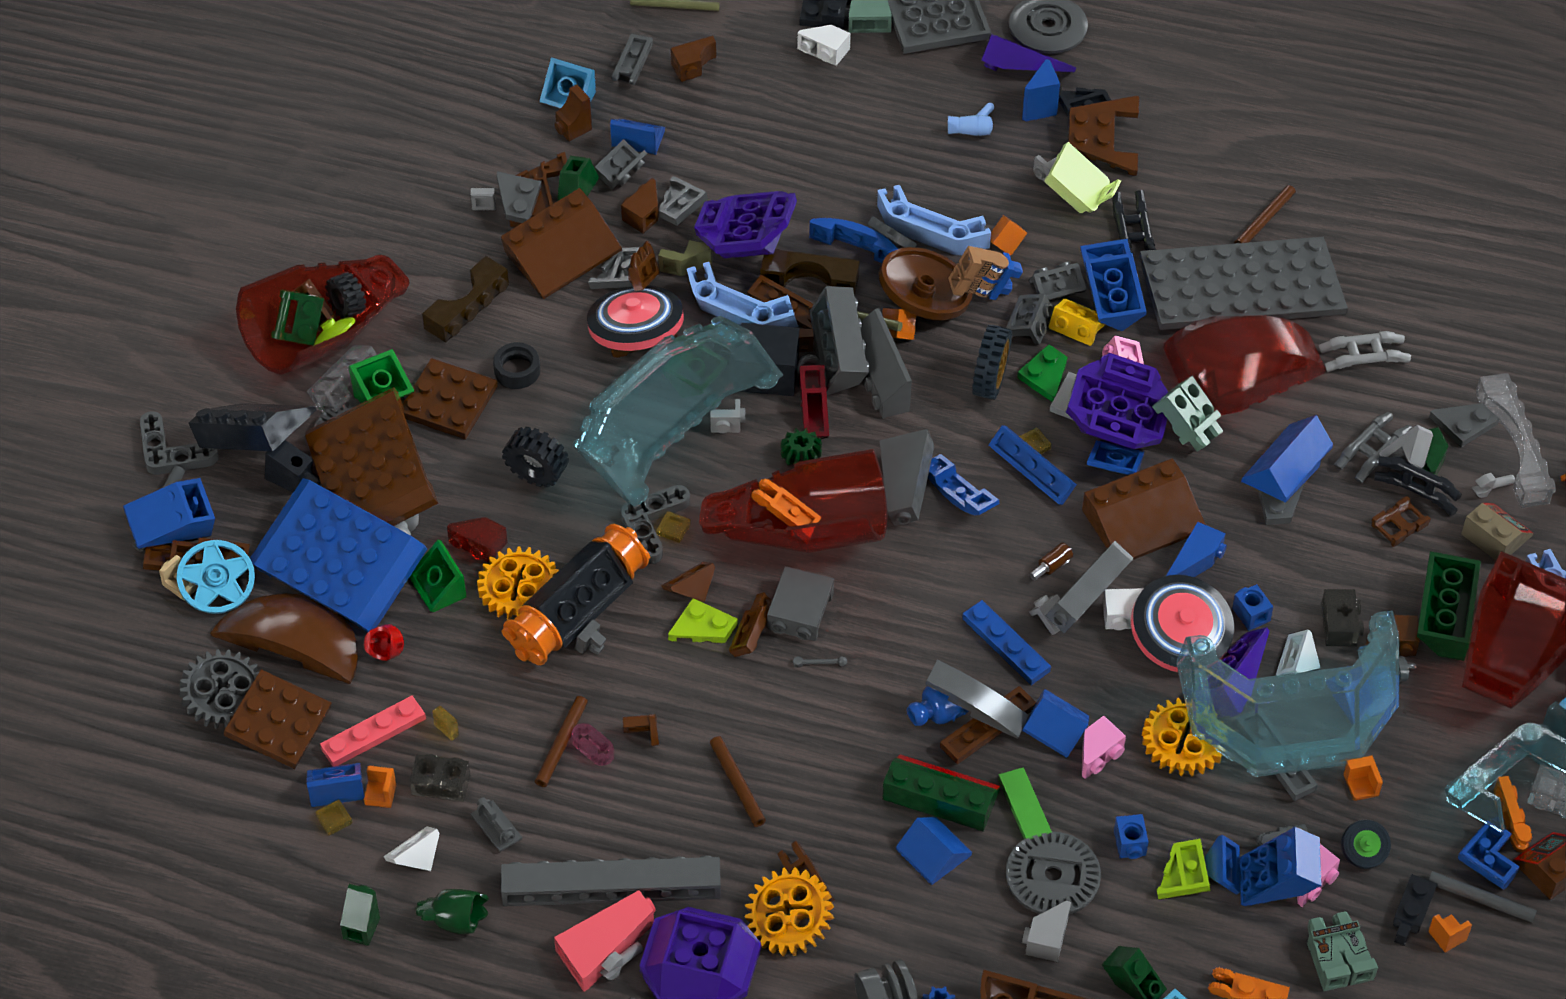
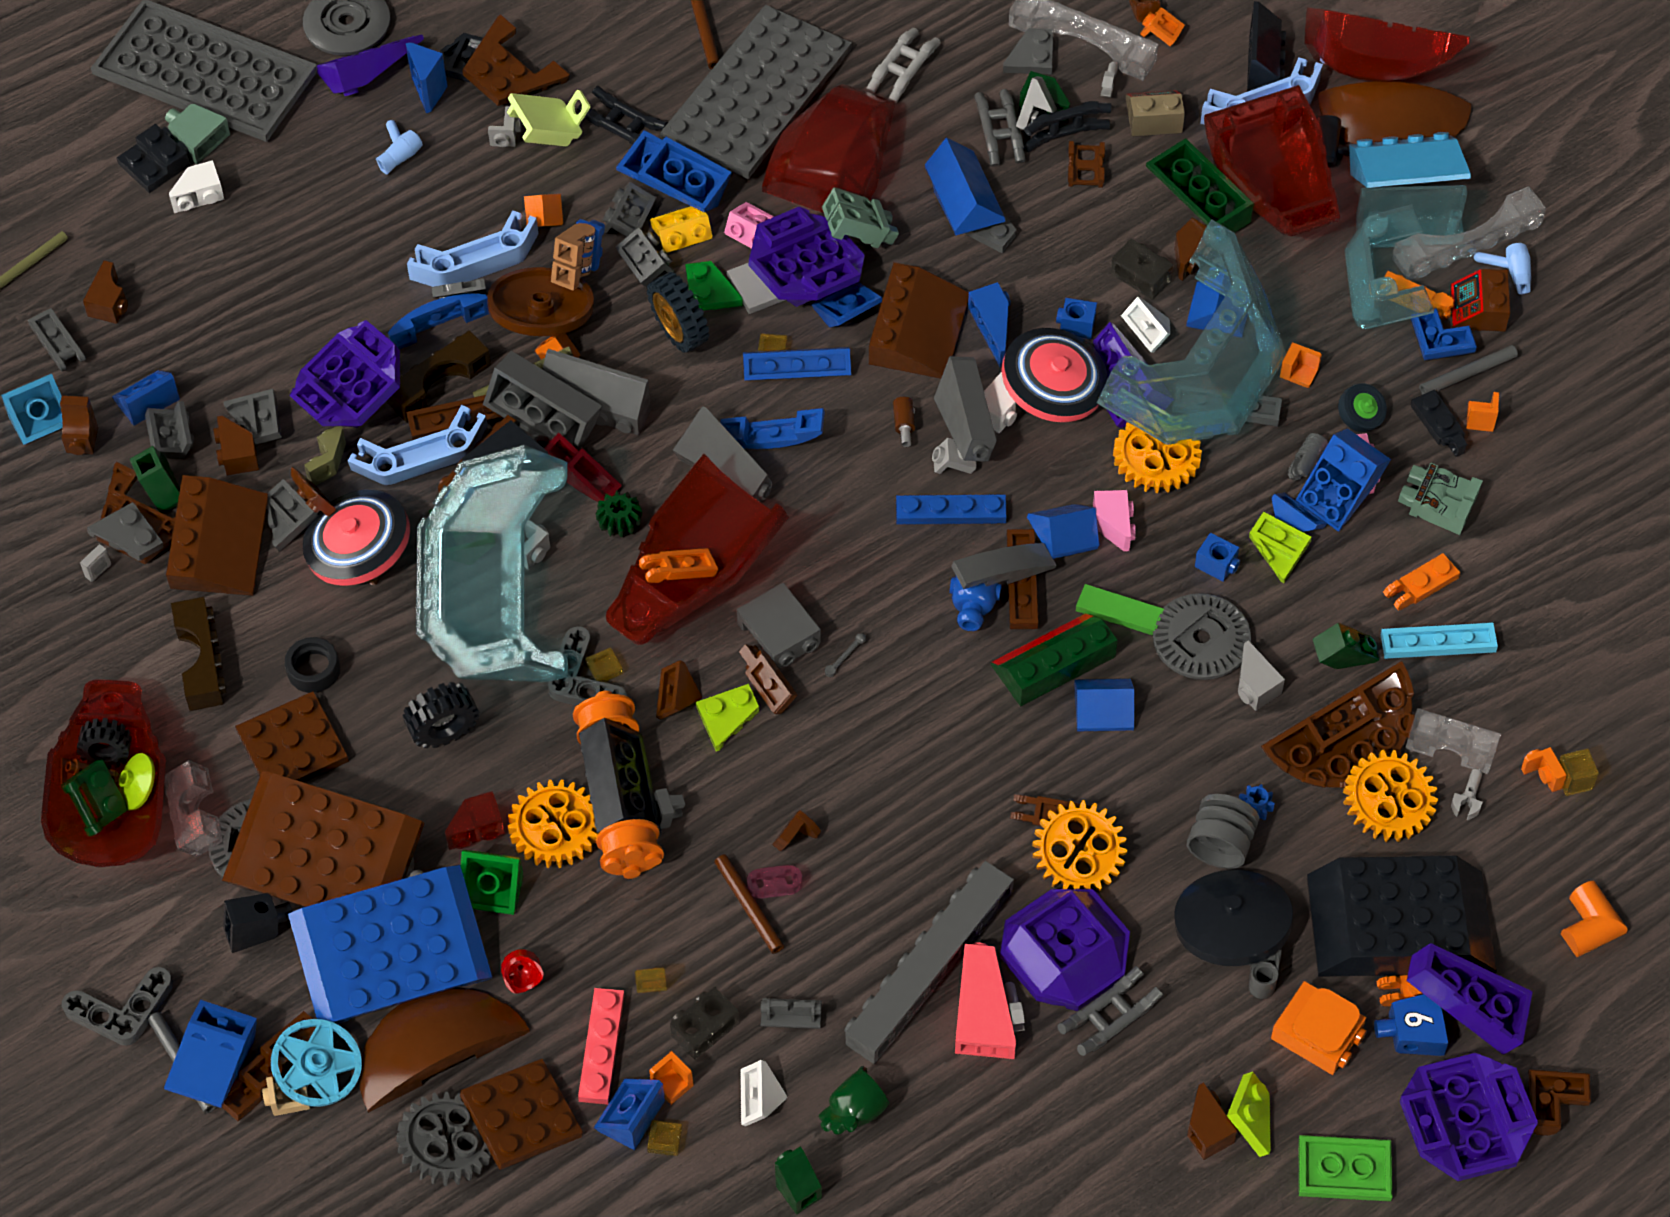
camera: 50 degrees left, 5 degrees up
(248, 425) = (180, 918): black slope -> none
(379, 375) = (228, 782): green slope -> none
(737, 781) = (910, 798): reddish brown piece -> none

